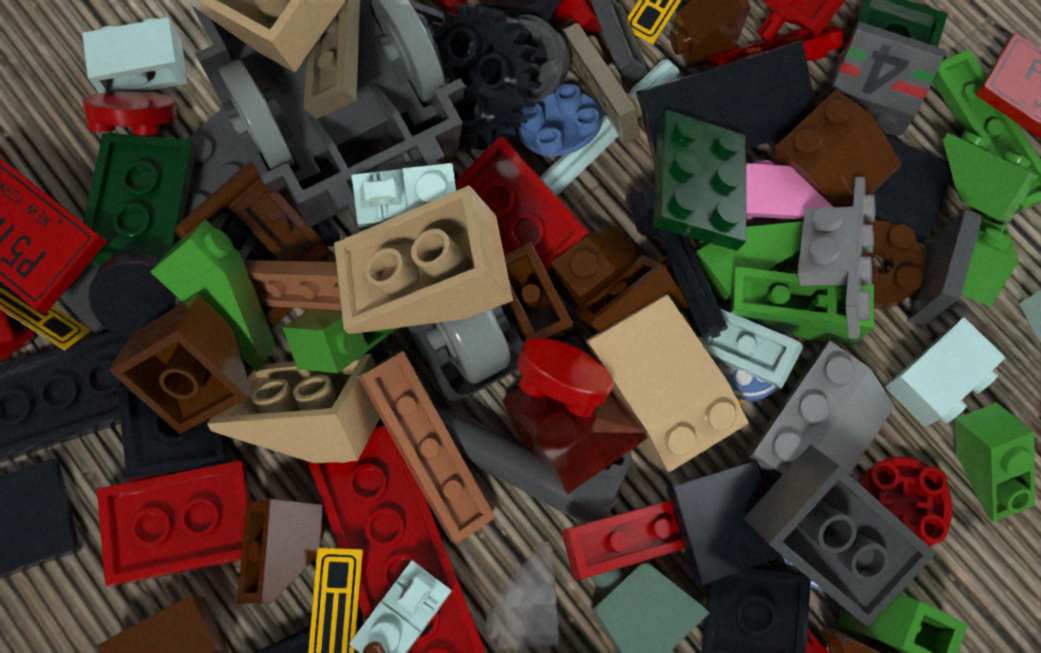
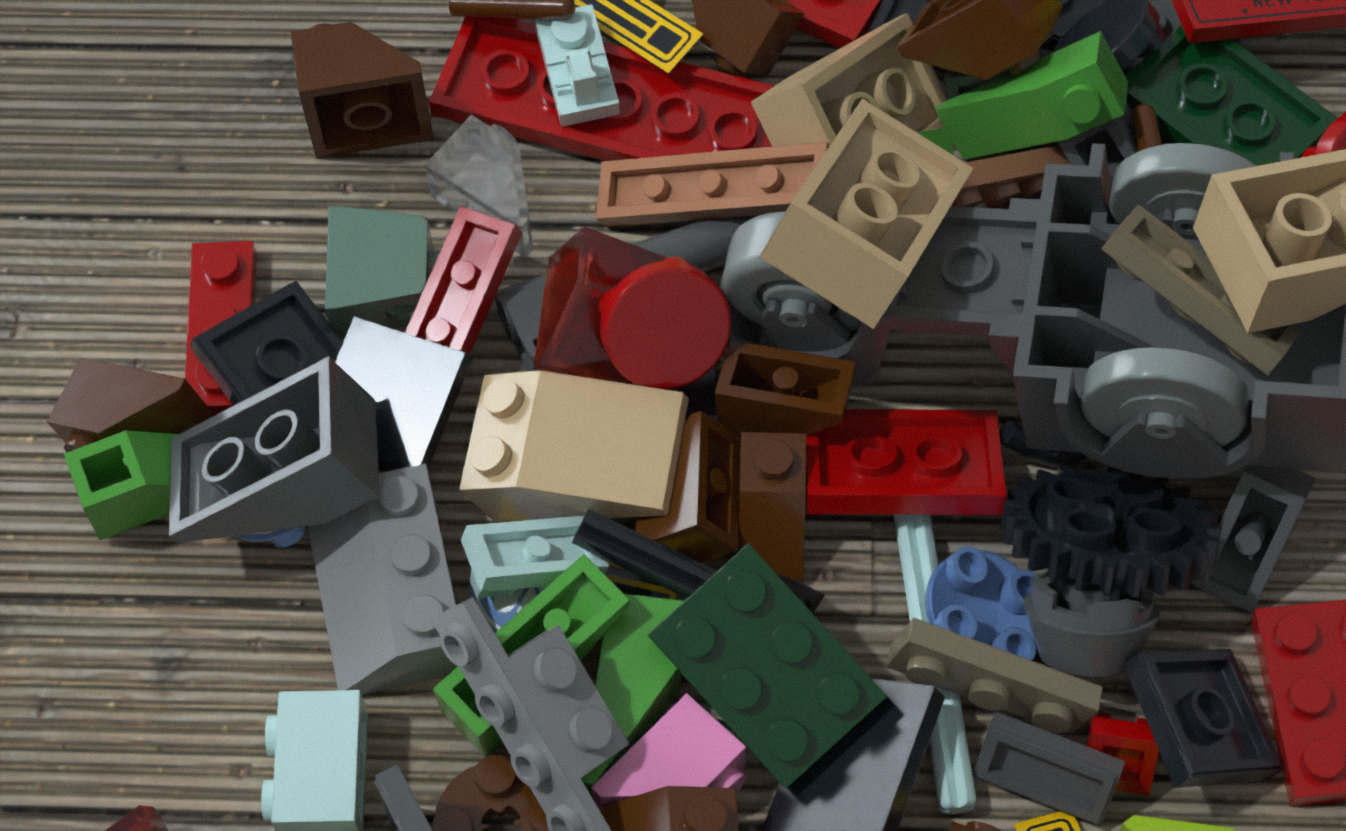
camera: 135 degrees right, 10 degrees down
(395, 192) = (970, 262): light aqua hinge -> none
(912, 494) = (240, 608): red tile -> none
(997, 459) = (187, 729): bright green slope -> none

